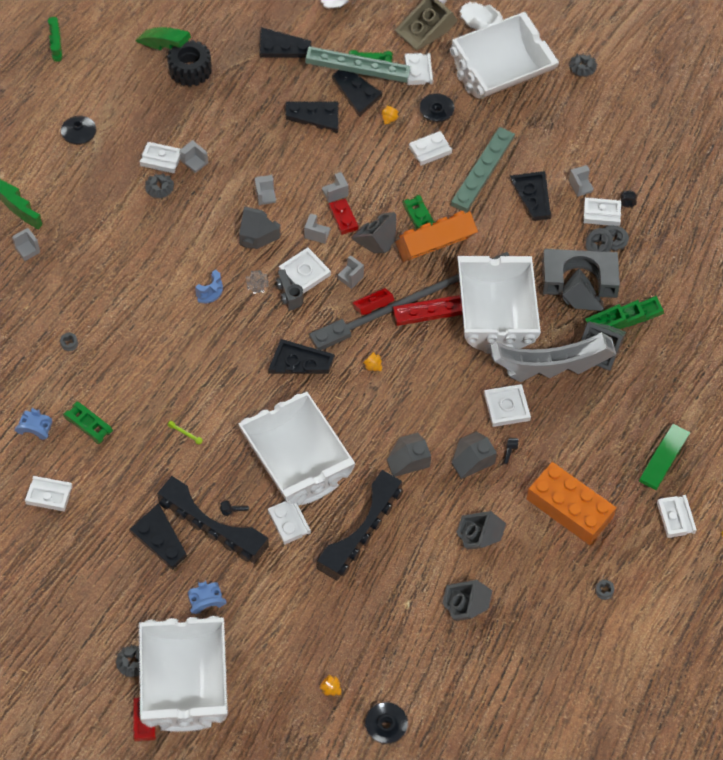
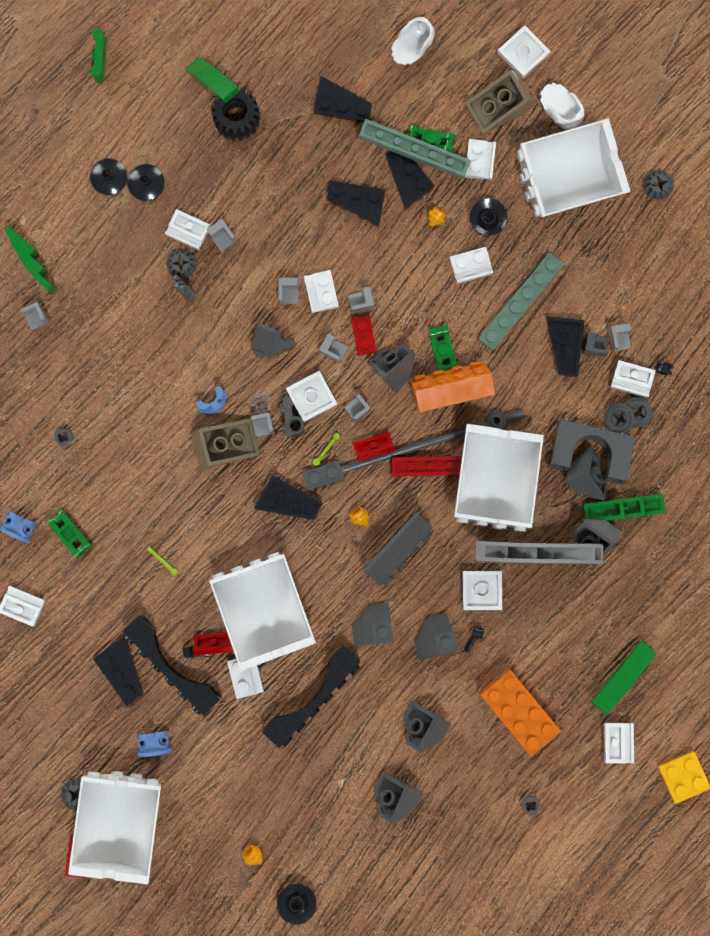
camera: 15 degrees right, 25 degrees up
(114, 129) = (150, 189): none -> black dish
(165, 200) = (182, 288): none -> dark grey gear
(228, 321) = (225, 443): none -> dark tan slope
(249, 494) = (212, 644): none -> red plate
(262, 299) = (262, 425): none -> light grey panel
(296, 188) = (321, 291): none -> white plate
(335, 301) = (316, 462): none -> lime hinge
(416, 379) = (398, 549): none -> dark grey slope
(560, 193) = (595, 345): none -> dark grey panel

